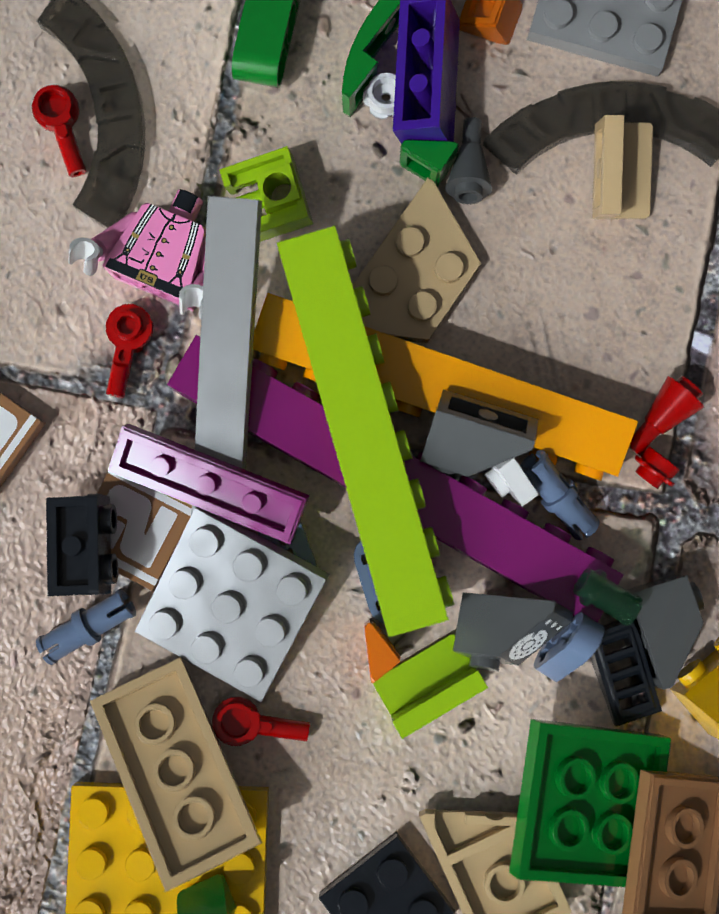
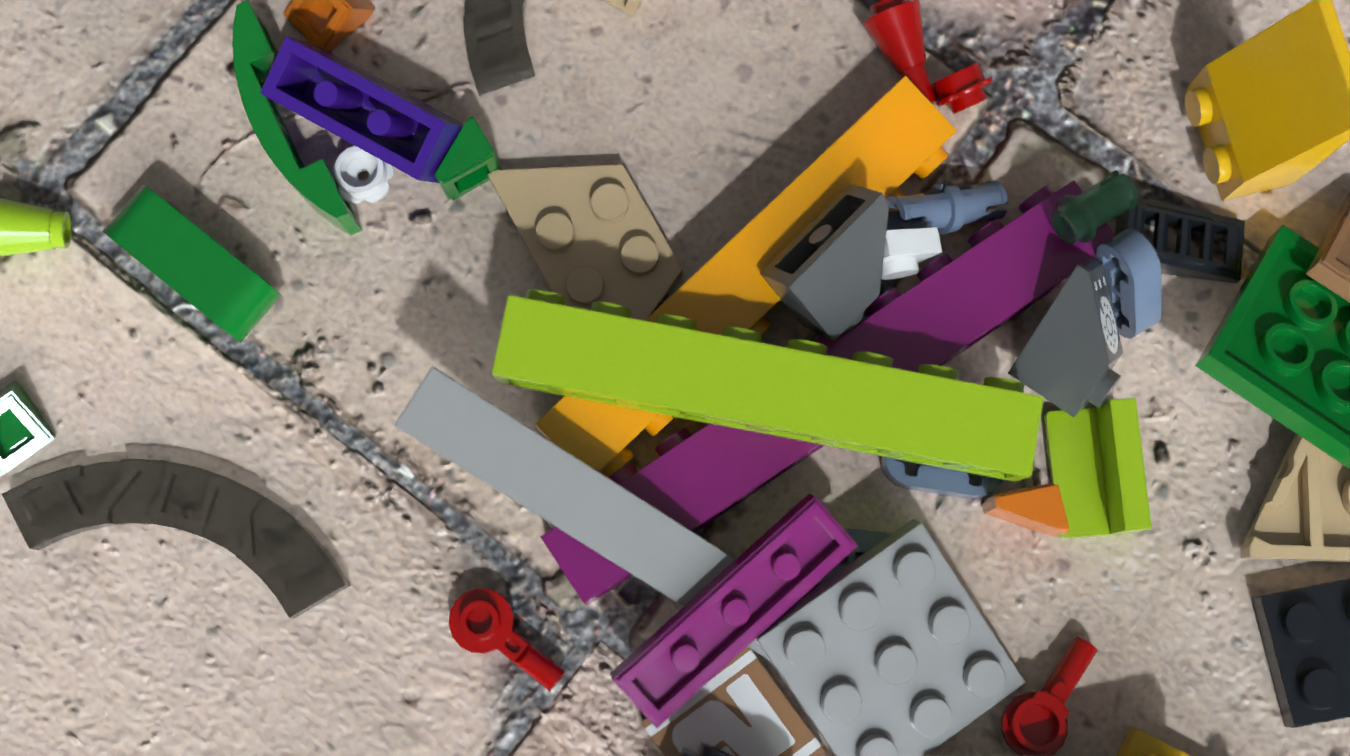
camera: 65 degrees left, 5 degrees down
(57, 112) = (159, 579): red plate -> none
(153, 251) = (413, 535): torso -> none
(269, 172) = (380, 355): lime brick -> none
(469, 176) = (511, 125): dark grey cone -> none
(668, 625) = (1154, 159): dark grey slope -> none

